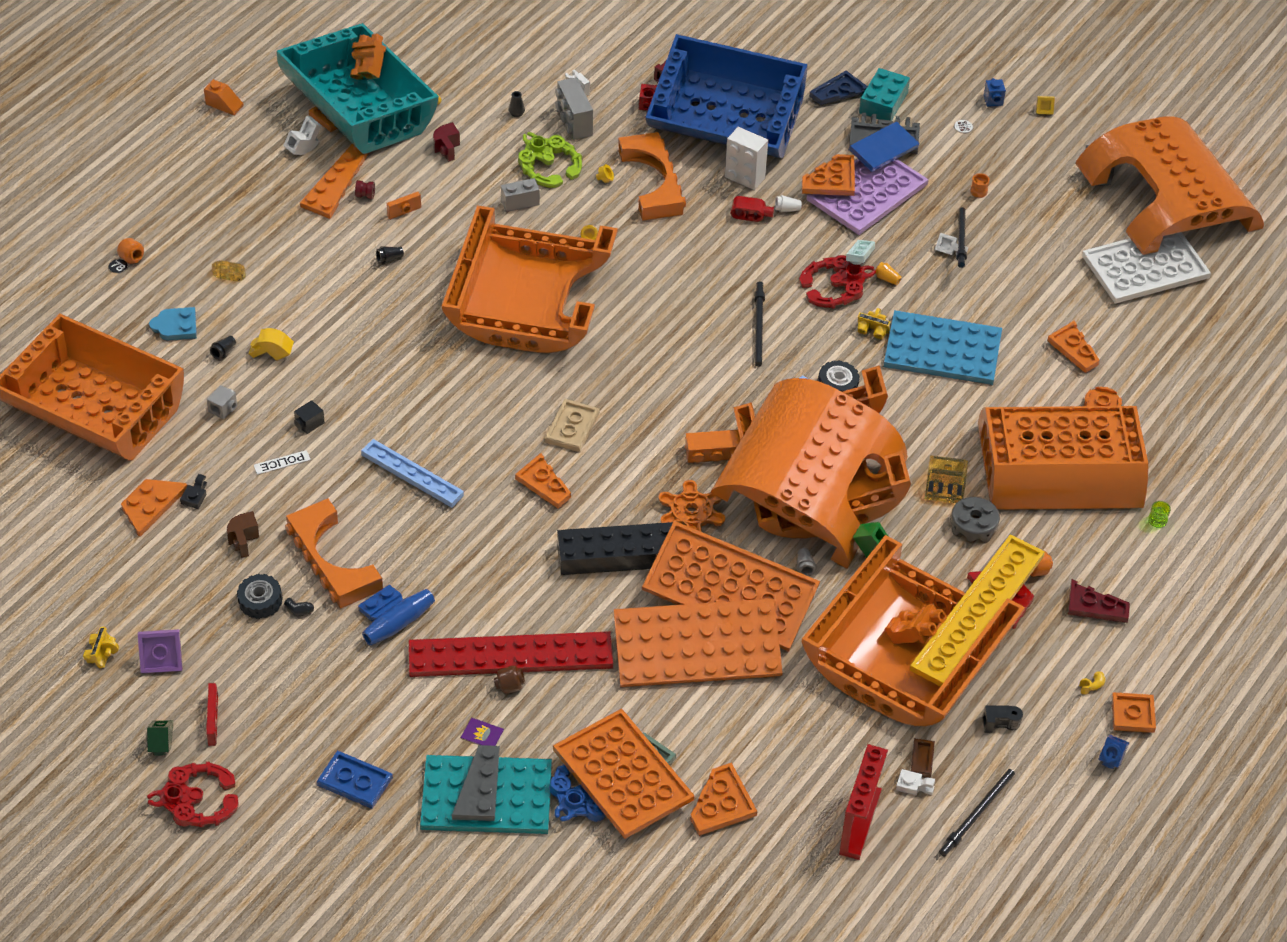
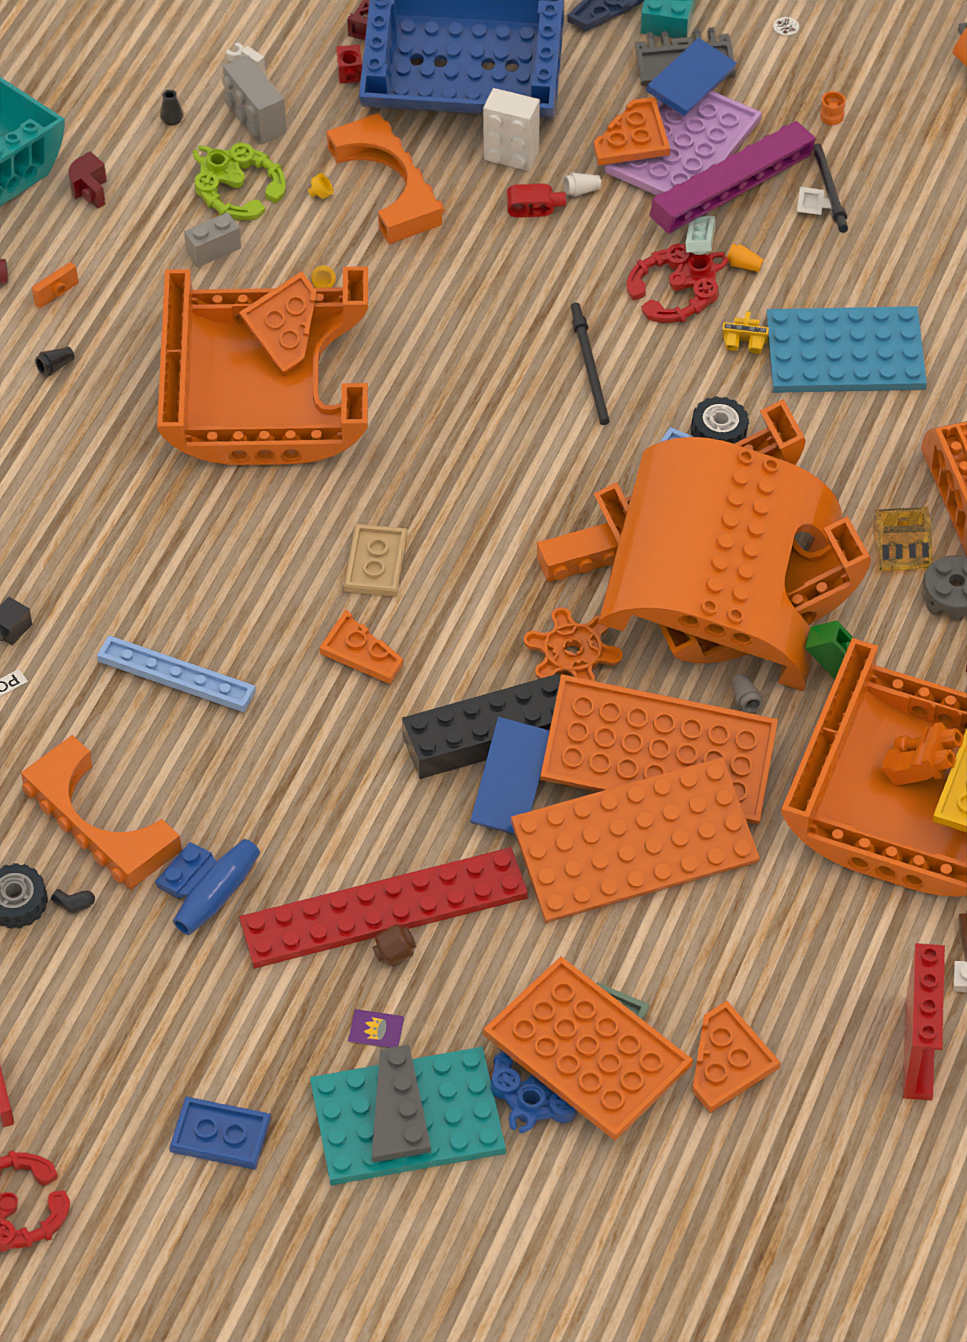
camera: 10 degrees left, 5 degrees up
(551, 255) = (283, 321): none -> orange plate
(621, 582) = (509, 774): none -> blue tile
(893, 217) = (731, 177): none -> magenta brick

